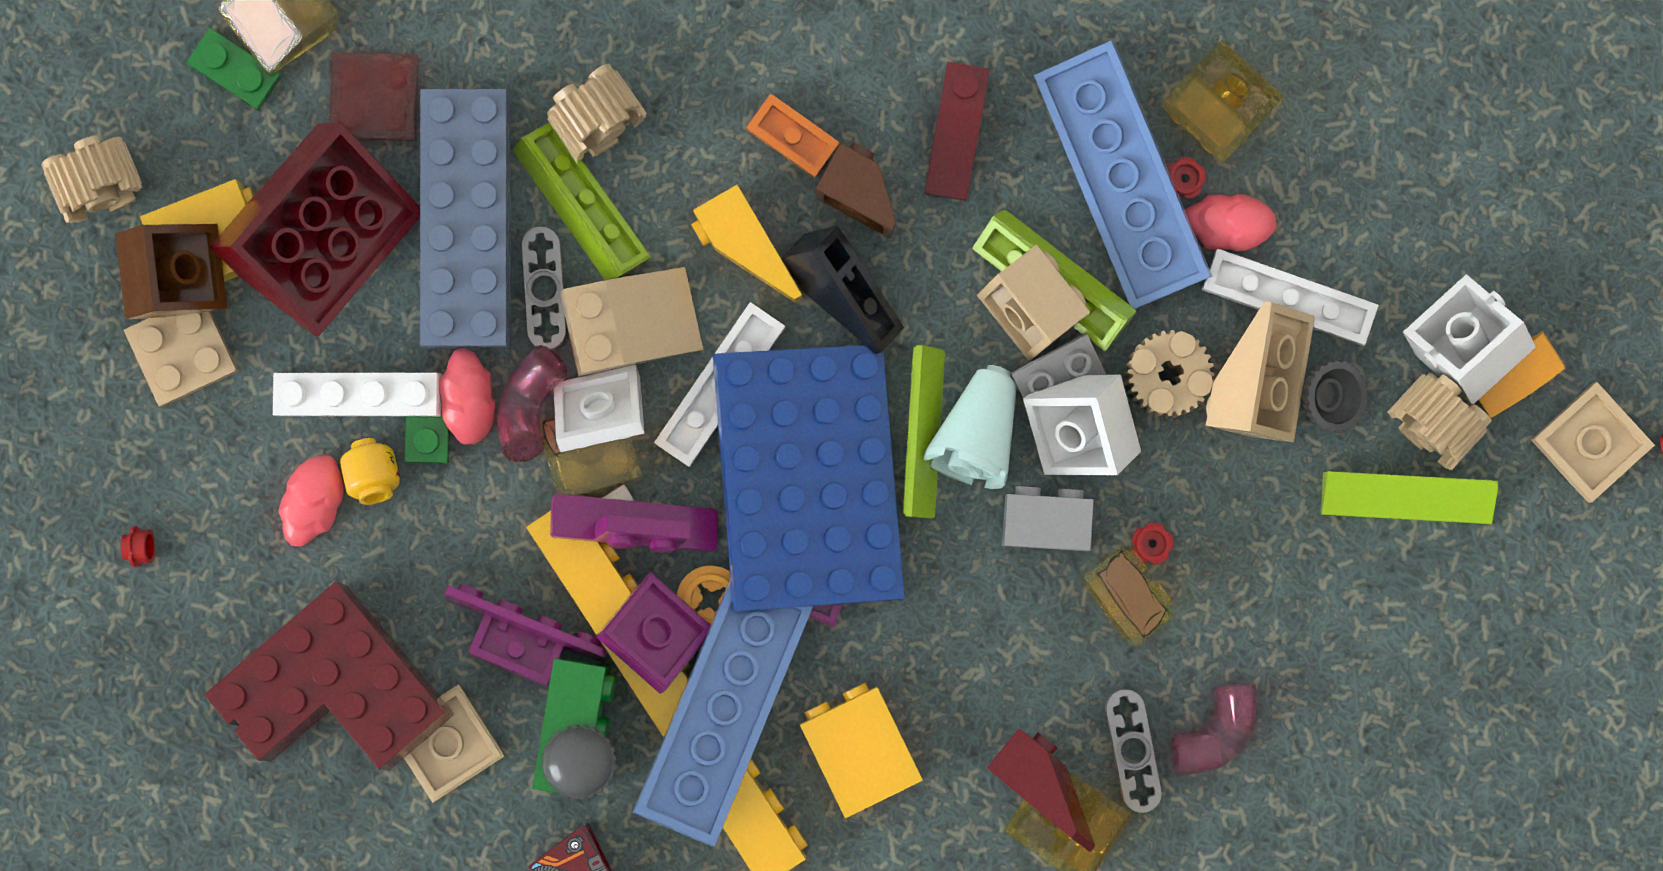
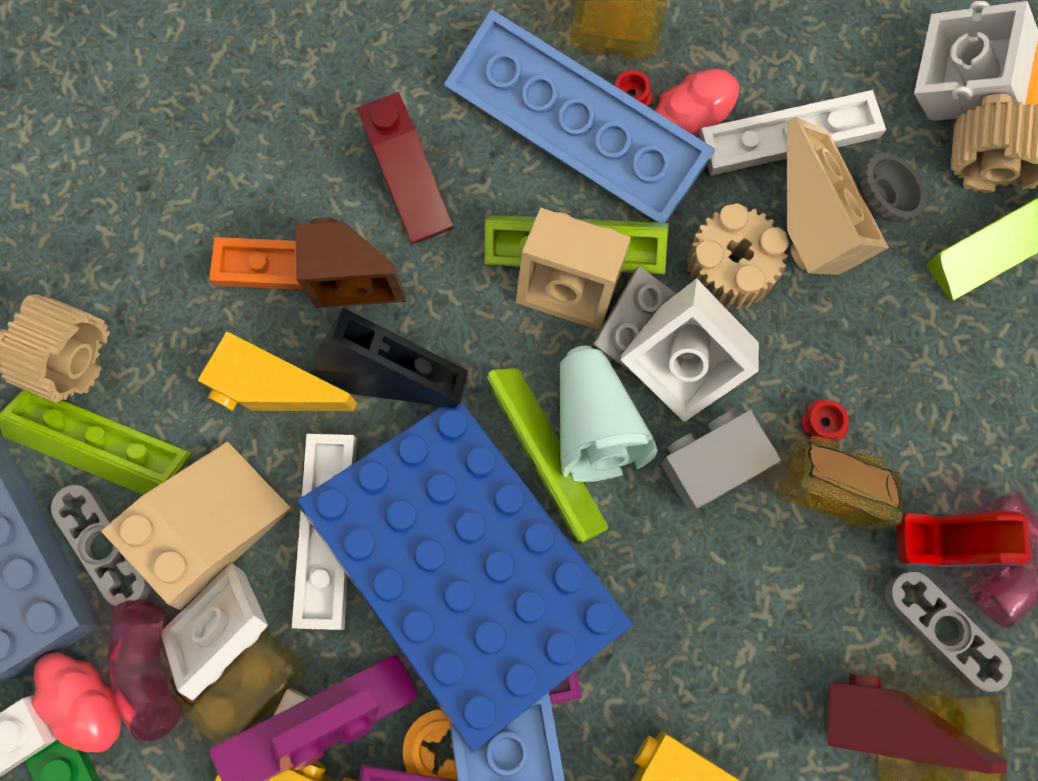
camera: 30 degrees left, 10 degrees down
(1181, 689) = (964, 539): none -> red animal

